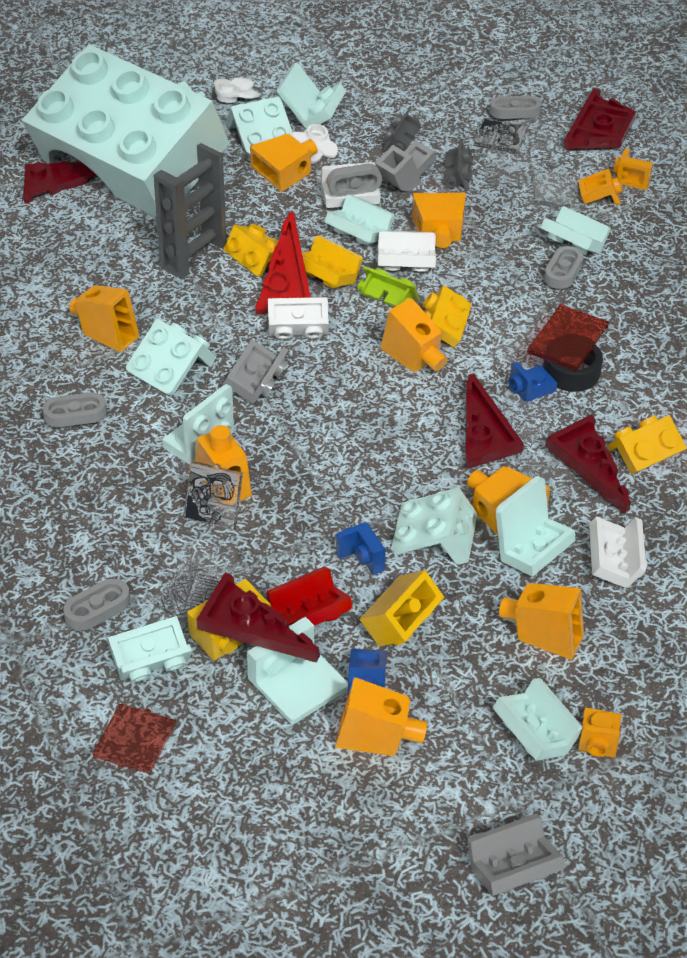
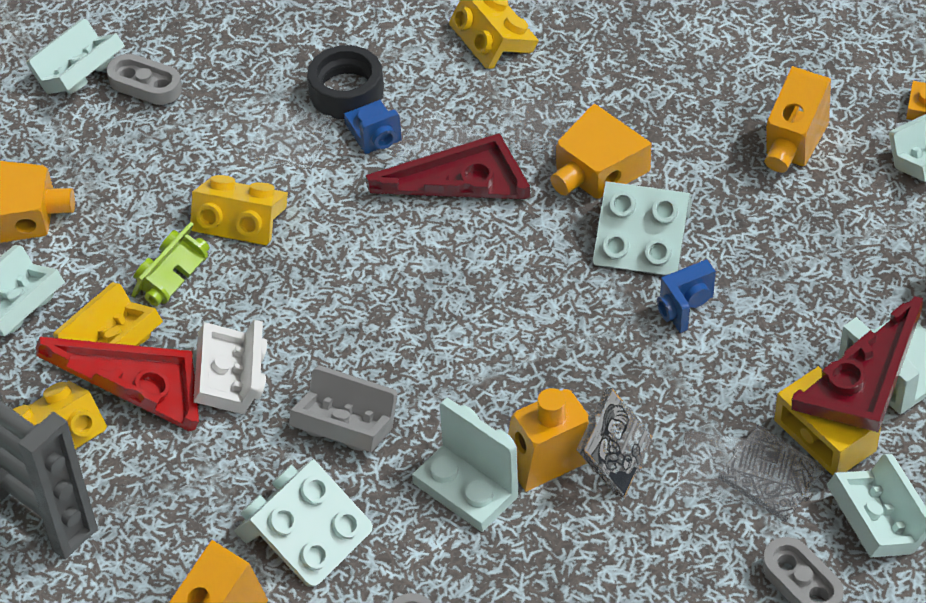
camera: 85 degrees left, 5 degrees up
(310, 597) = (786, 343): red bracket -> none
(368, 666) = (881, 290): blue bracket -> none
(402, 608) = (793, 252): yellow brick -> none
(406, 249) = (92, 241): white bracket -> none
(413, 337) = (299, 230): light orange torso -> none
(526, 533) = (674, 134): light aqua bracket -> none
(568, 337) = (313, 72): clear red piece -> none
(587, 455) = (521, 78): dark red wing -> none
(617, 551) = (677, 60): white bracket -> none

